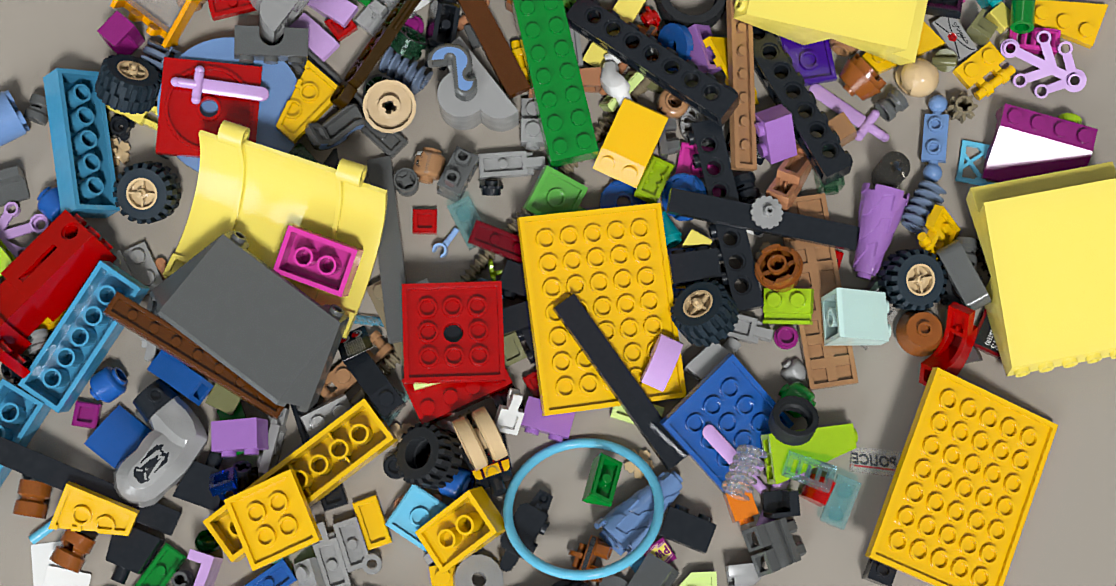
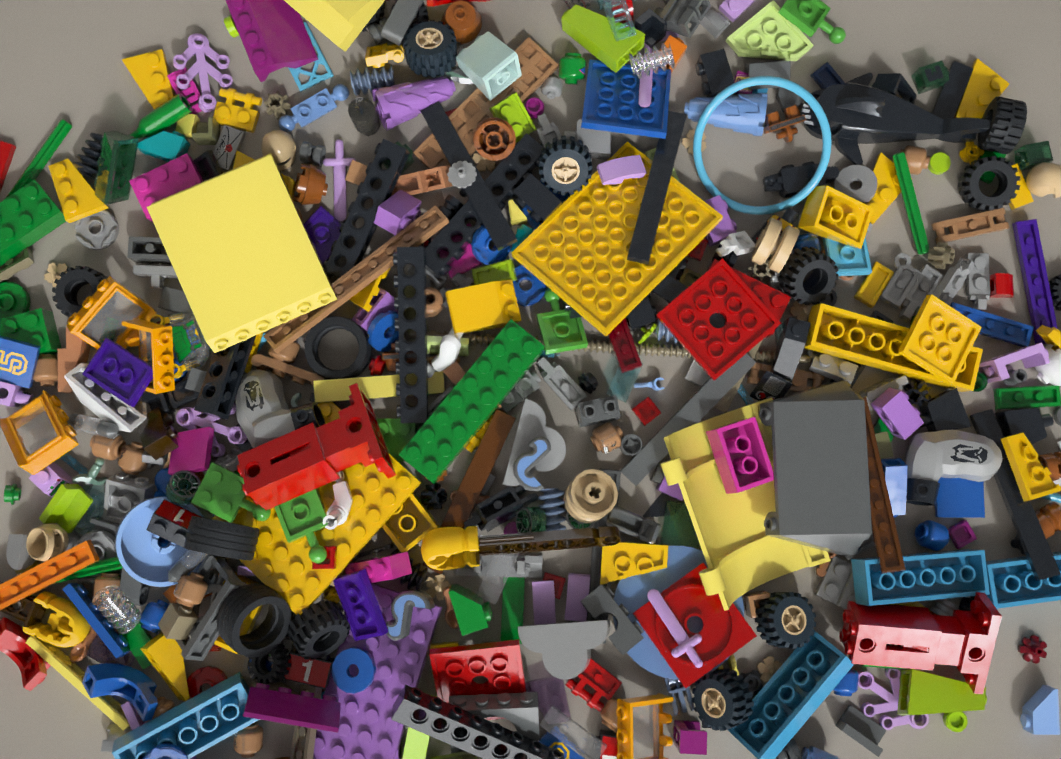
camera: 130 degrees left, 5 degrees up
(187, 181) = (751, 601): none -> medium nougat panel
(223, 482) = (938, 396): clear blue tile -> none
(602, 480) = (732, 148): green slope -> none
(798, 405) = (583, 40): black tyre -> none
(945, 60) = (249, 140): olive plate -> none

